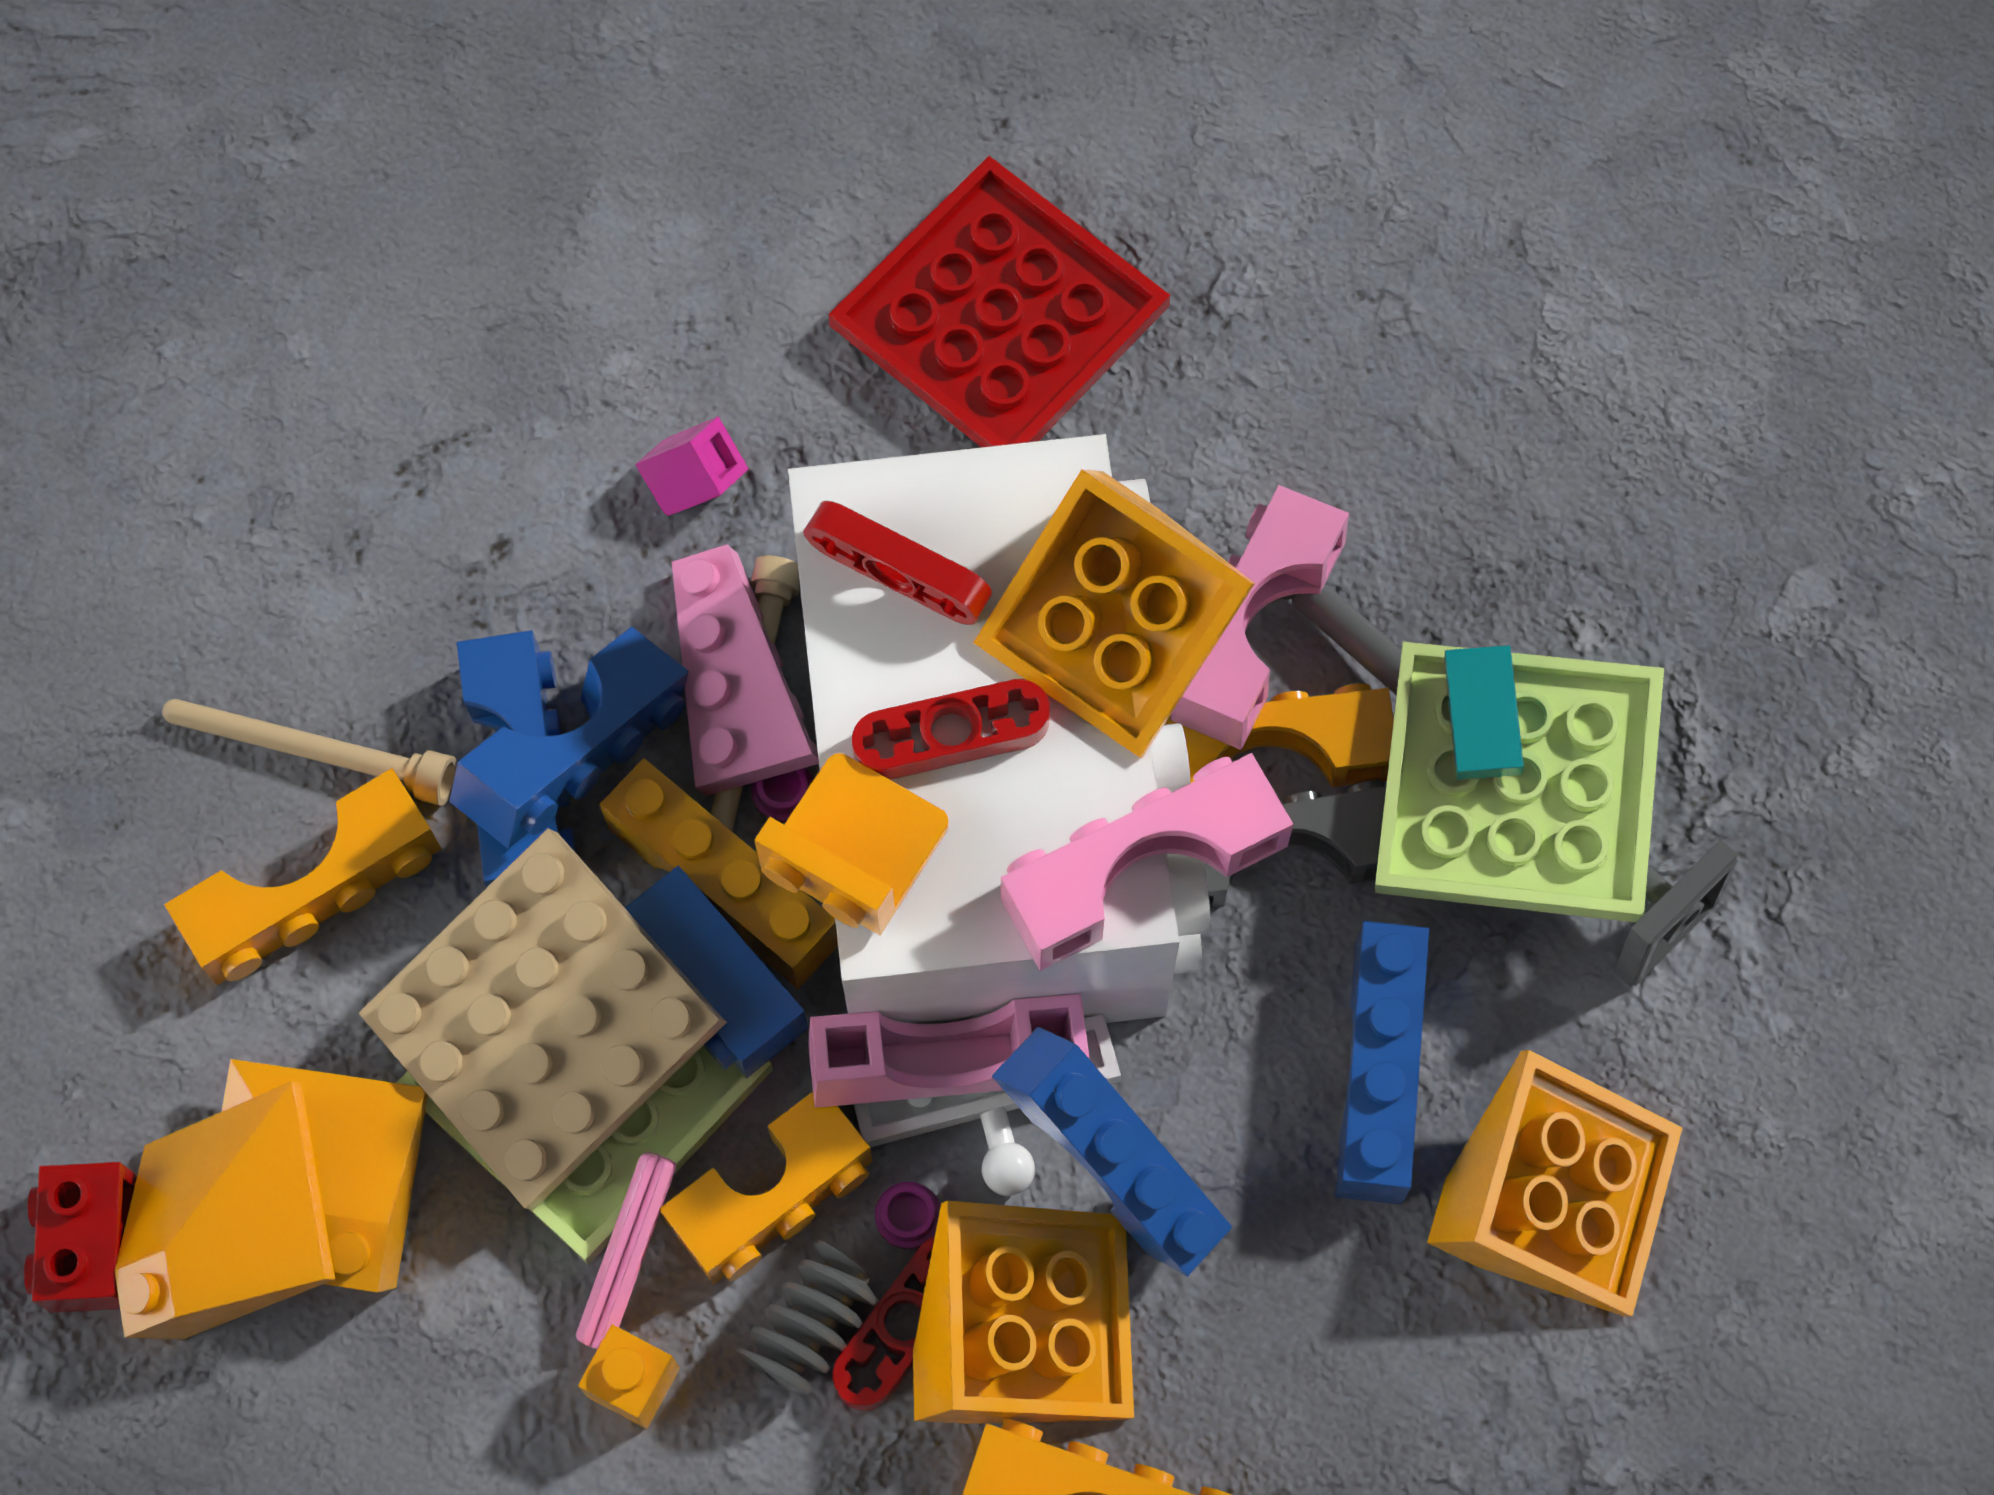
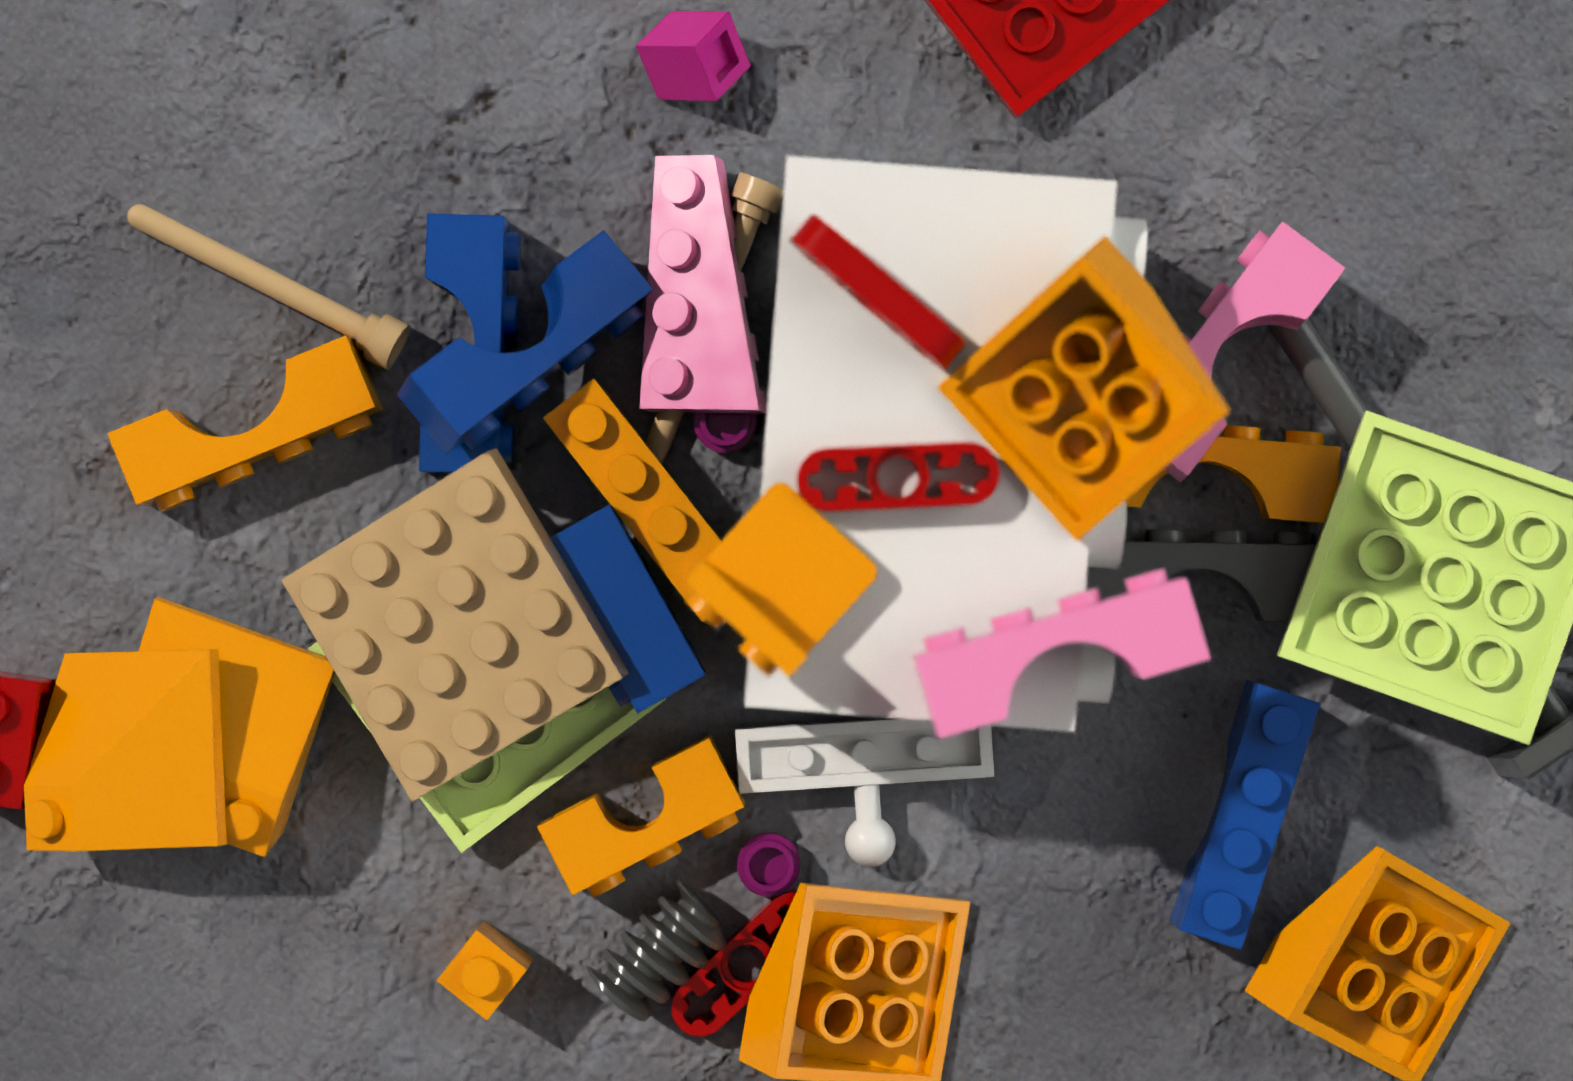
camera: 10 degrees right, 20 degrees up
(626, 1248) = (501, 852): bright pink axle -> none
(882, 1059) = (829, 743): bright pink arch -> none
(1091, 1120) = (968, 870): blue arch -> none
(1483, 712) = (1427, 508): teal tile -> none

